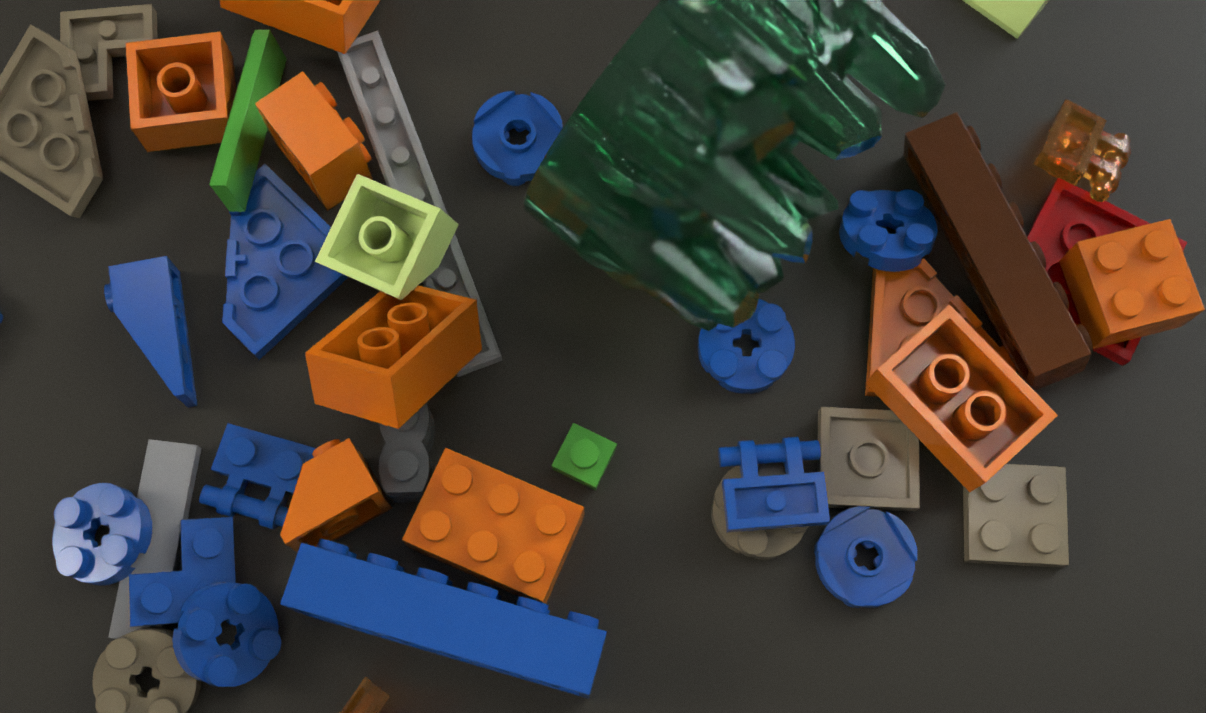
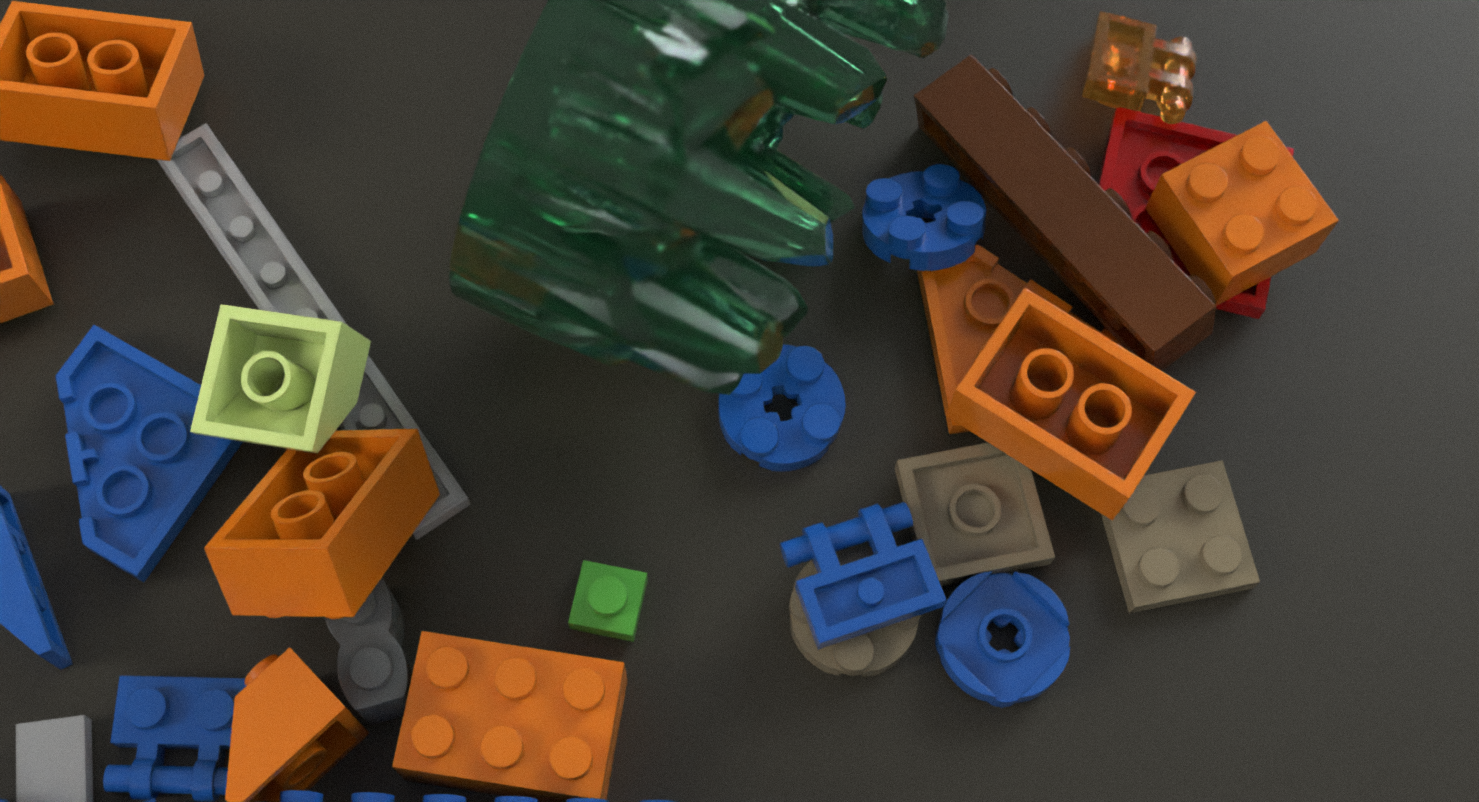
camera: 15 degrees left, 5 degrees down
(245, 127) = (59, 275): bright green tile -> none
(315, 138) = (153, 274): orange brick -> none
(491, 135) = (389, 225): blue plate -> none

